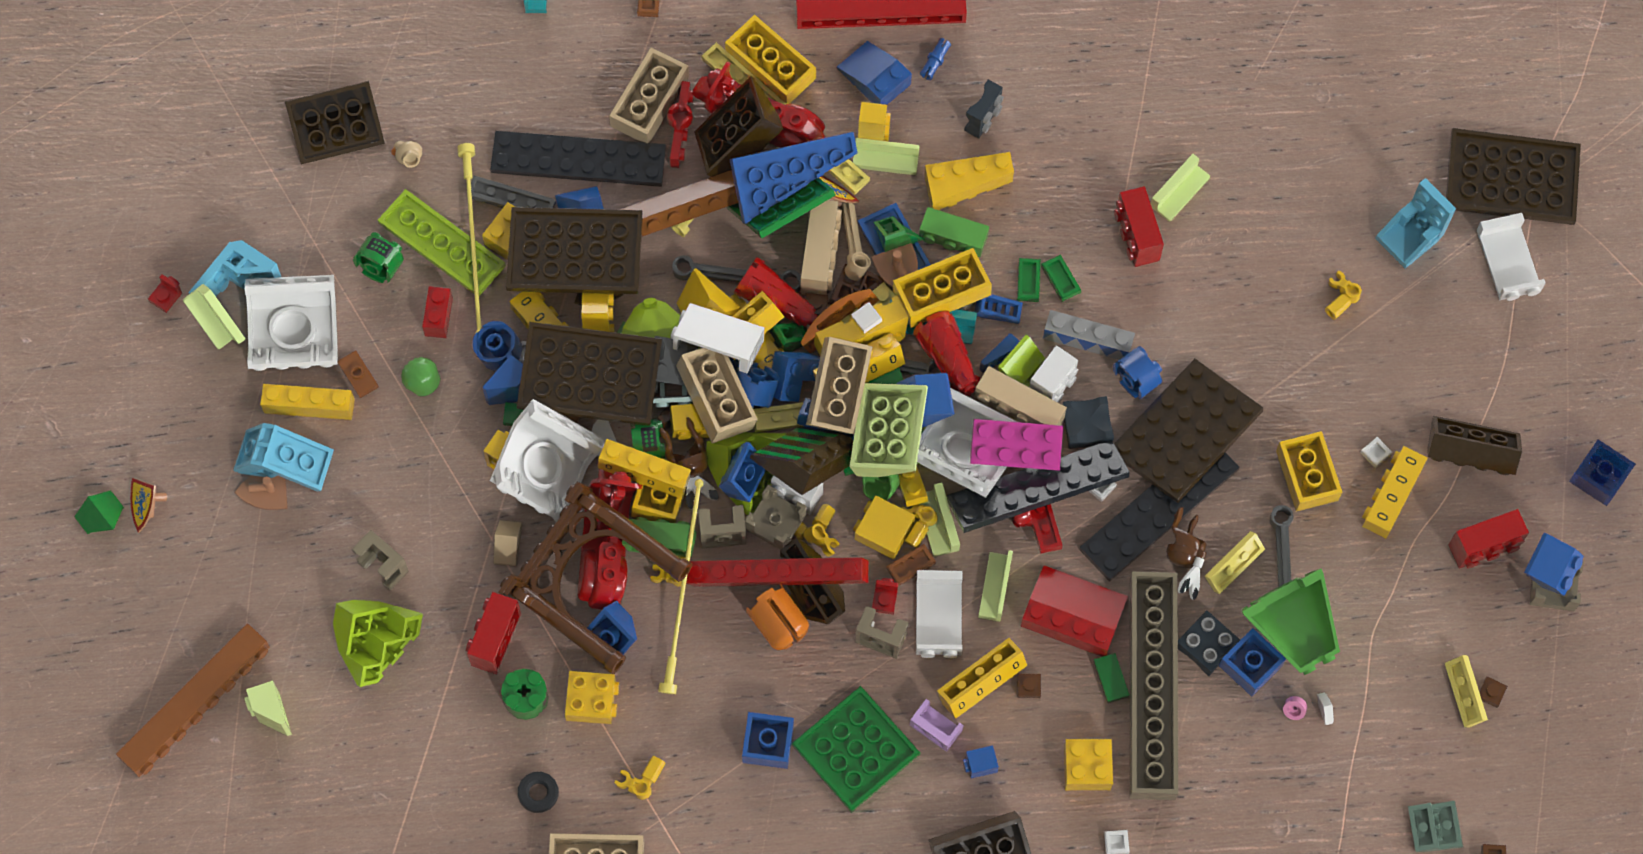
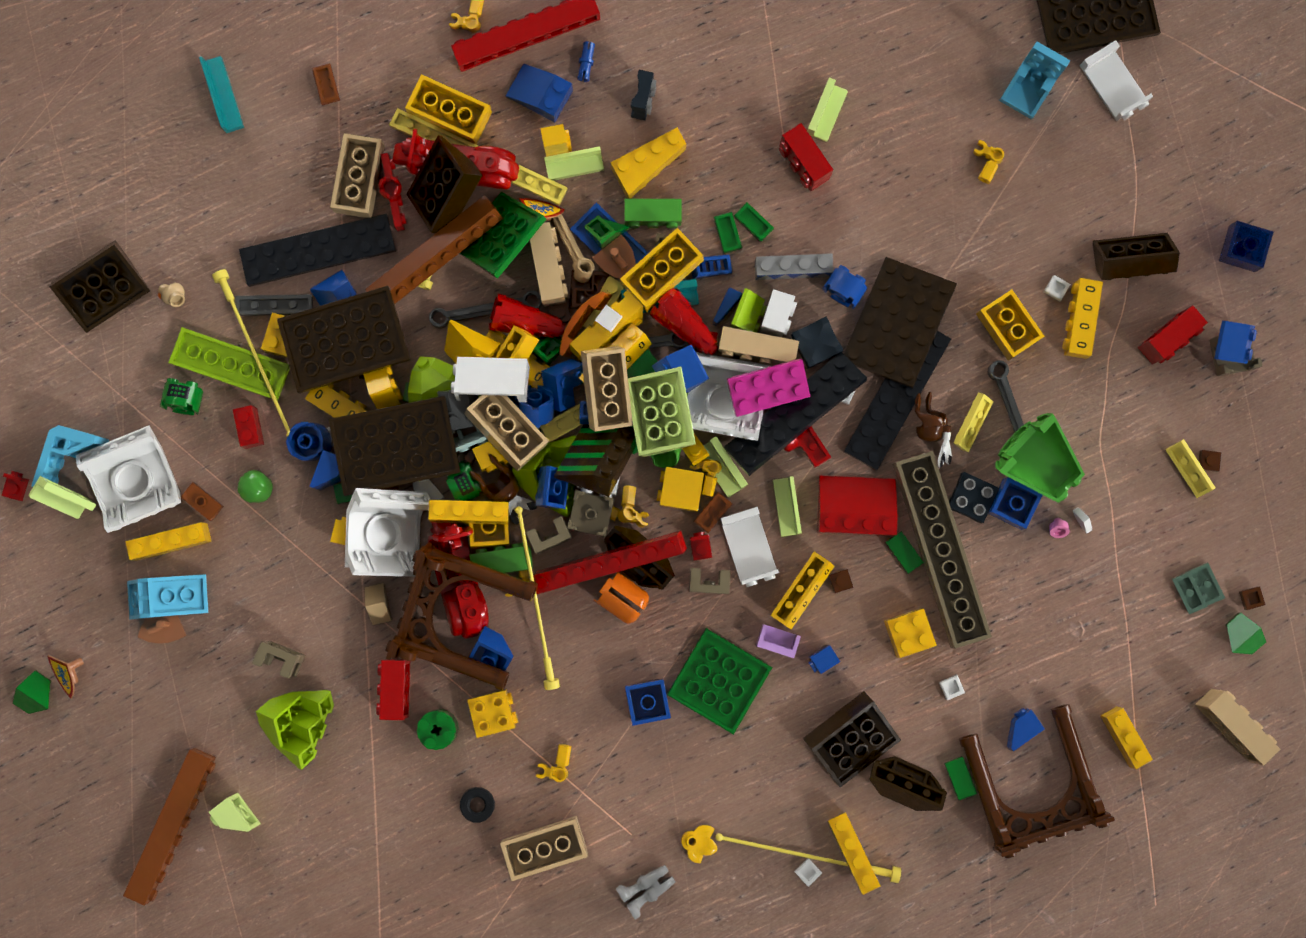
camera: 20 degrees left, 15 degrees up
(777, 173) = (492, 214): blue wing -> none

